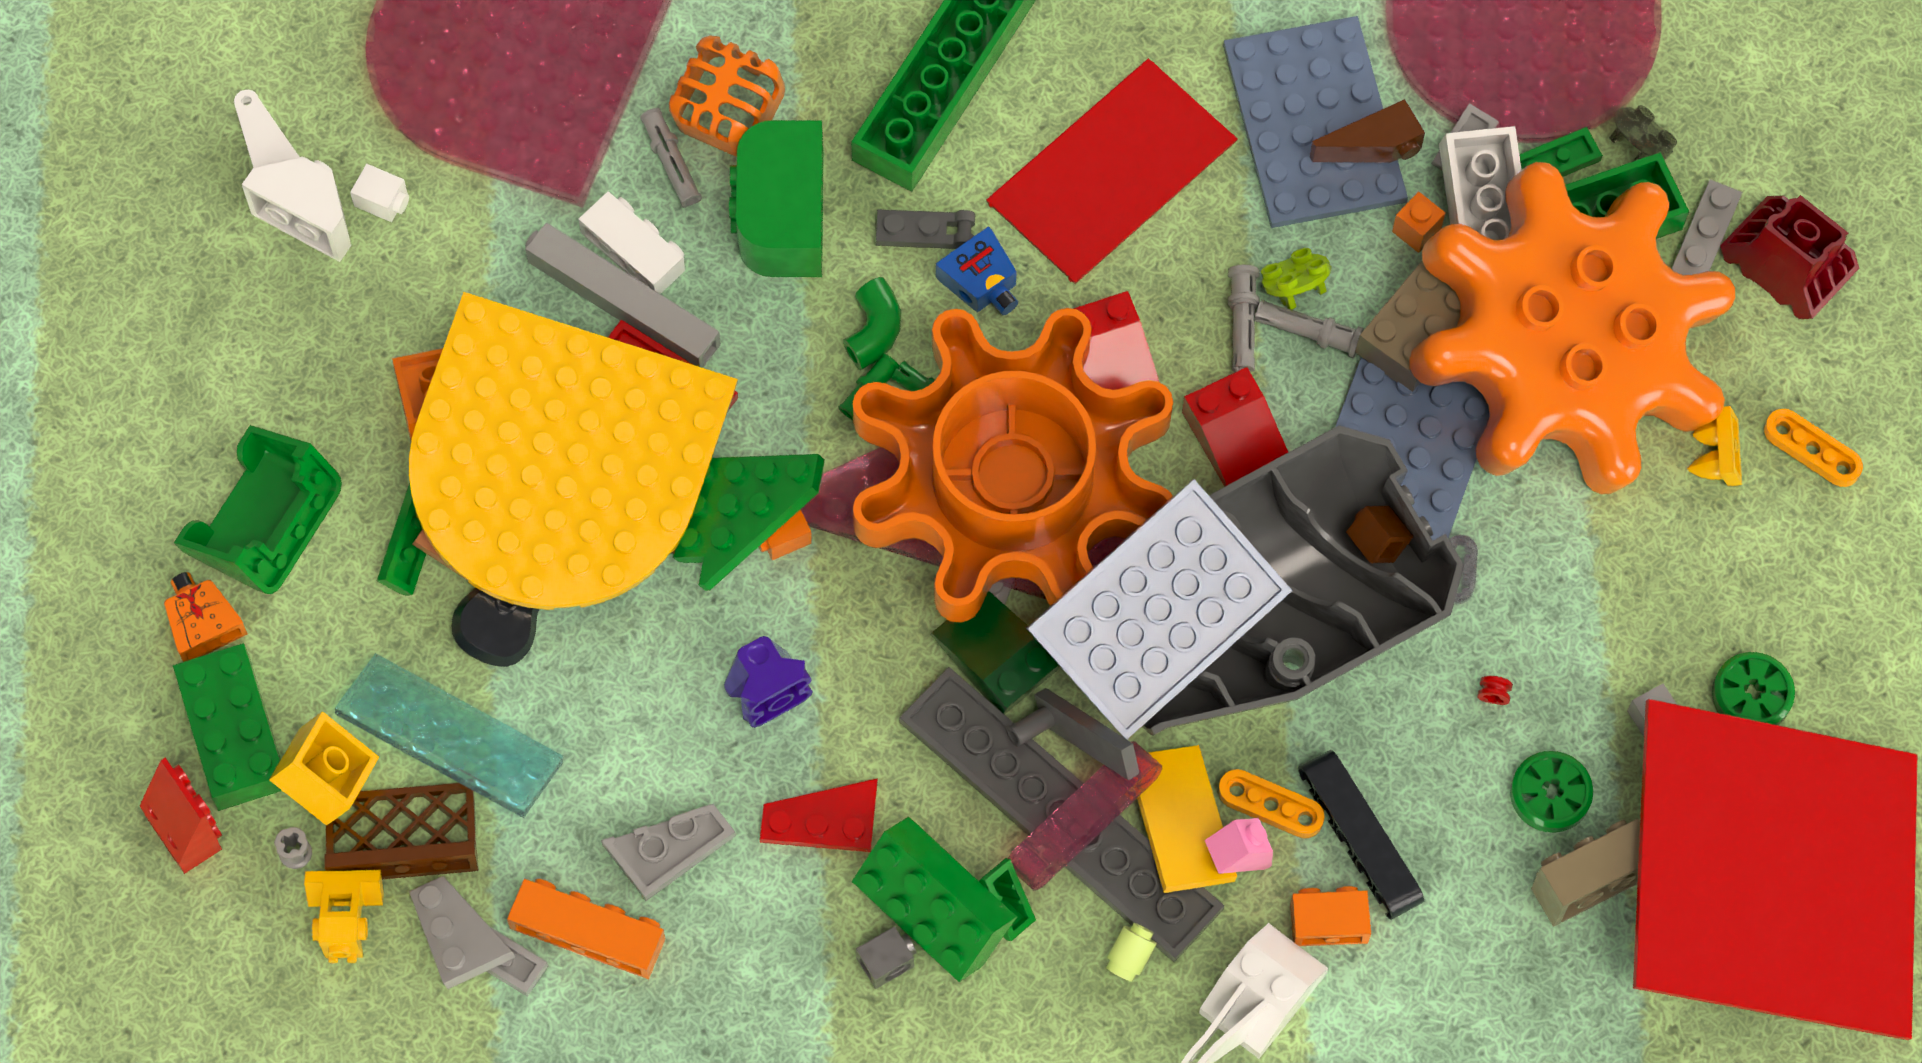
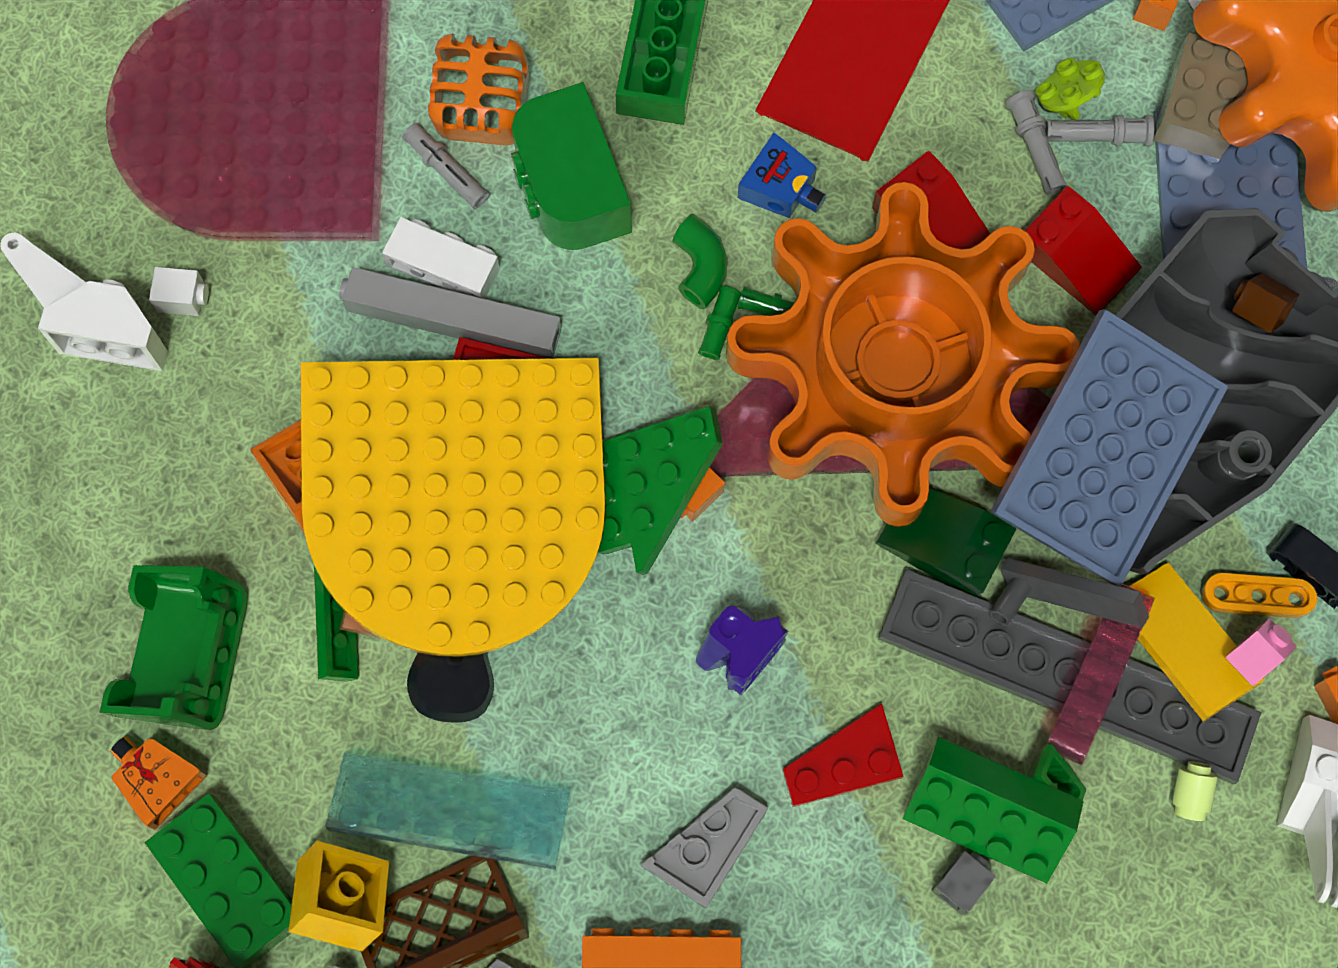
camera: 20 degrees left, 5 degrees up
(923, 228) = (709, 155): dark grey plate -> none

